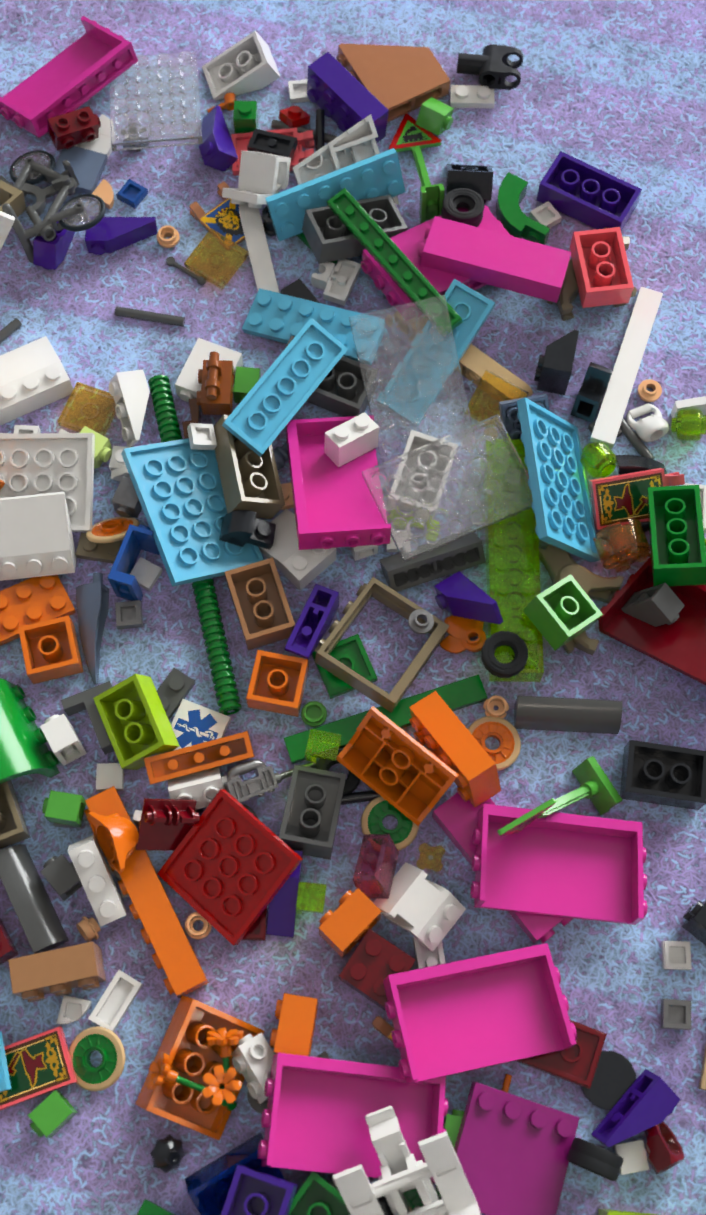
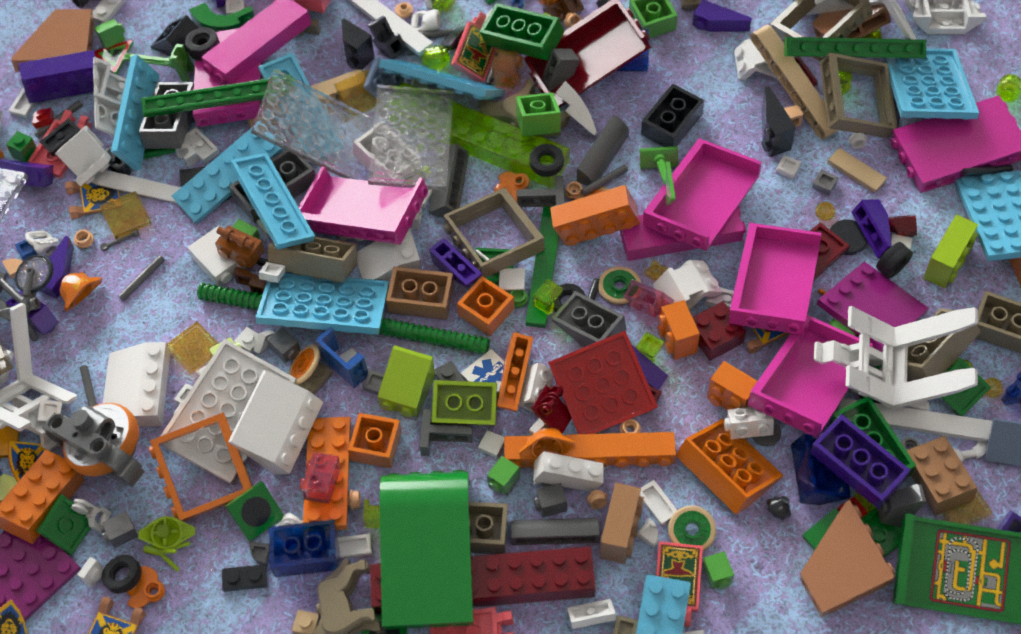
camera: 60 degrees left, 10 degrees down
(62, 739) = (449, 454): white brick -> none
(92, 612) = (352, 402): sand blue piece -> none
(99, 261) = (76, 288): none -> orange hat
(131, 399) = (209, 313): white slope -> none
(136, 646) = (406, 381): none -> lime slope
(137, 205) = (42, 246): none -> white piece
(220, 1086) = (756, 428): orange plant -> none
(243, 527) = (359, 275): black brick -> none
(263, 782) = (551, 345): flat silver piece -> none
(320, 128) = (77, 111): black bar -> none
(332, 693) = (509, 278): none -> white piece
(351, 439) = (333, 184): brick -> none
(396, 766) = (588, 251): orange piece -> none
(417, 627) = (493, 200): flat silver plate -> none
(463, 679) = (542, 197): none -> dark grey bracket
(466, 599) = (493, 168): dark purple slope -> none
(528, 735) = (604, 180): none -> dark grey bar
(607, 656) = (577, 107): none -> white slope
(631, 1033) = (825, 211): none -> clear yellow plate

